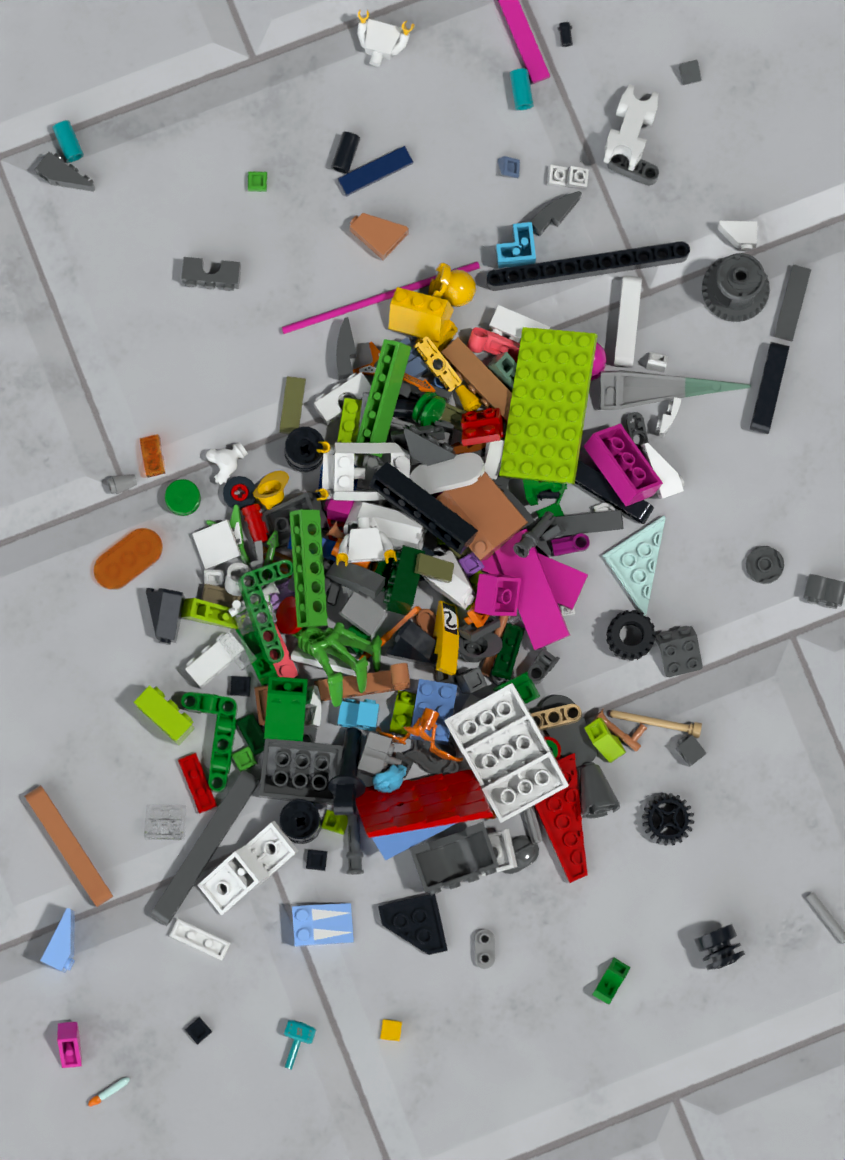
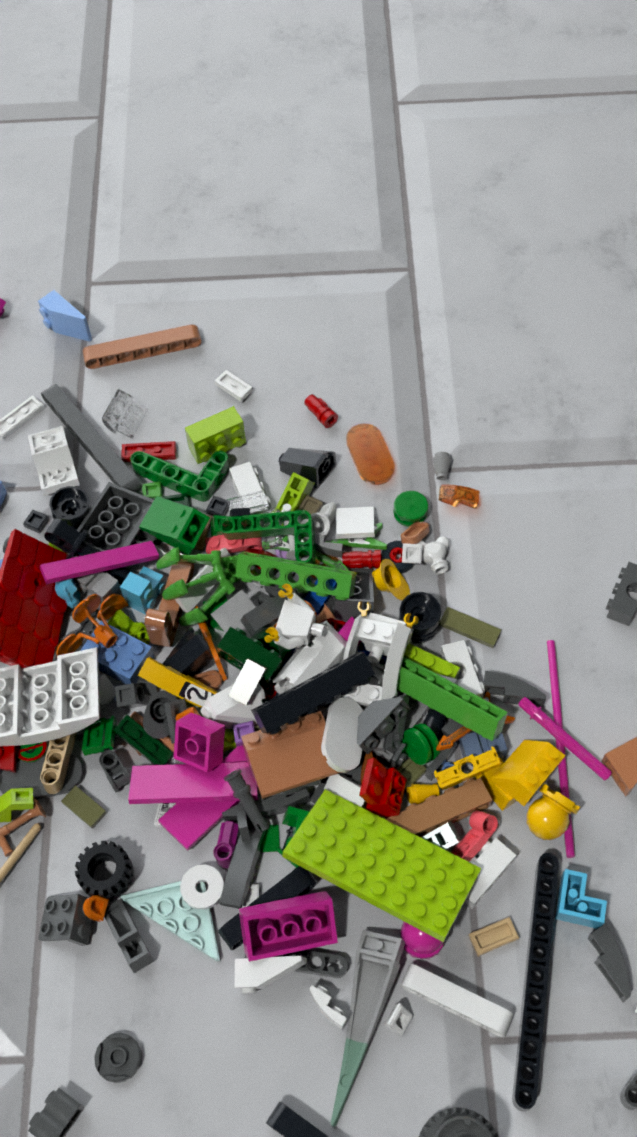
camera: 115 degrees right, 20 degrees down
(89, 727) = (233, 385): none -> white plate
(92, 626) = (320, 409): none -> red axle
(211, 483) = (415, 533): none -> nougat tile
(238, 477) = (412, 553): none -> white tile
(256, 647) = (239, 512): none -> black tile
(357, 755) = (98, 562): none -> dark pink tile
(377, 294) = (563, 737): none -> dark pink axle
(566, 308) = (493, 936): none -> tan tile
(581, 681) = (83, 807): none -> olive tile
(614, 538) = (200, 874): none -> white tile
(663, 627) = (95, 907): none -> orange tile
(673, 596) = (127, 936): none -> dark grey slope

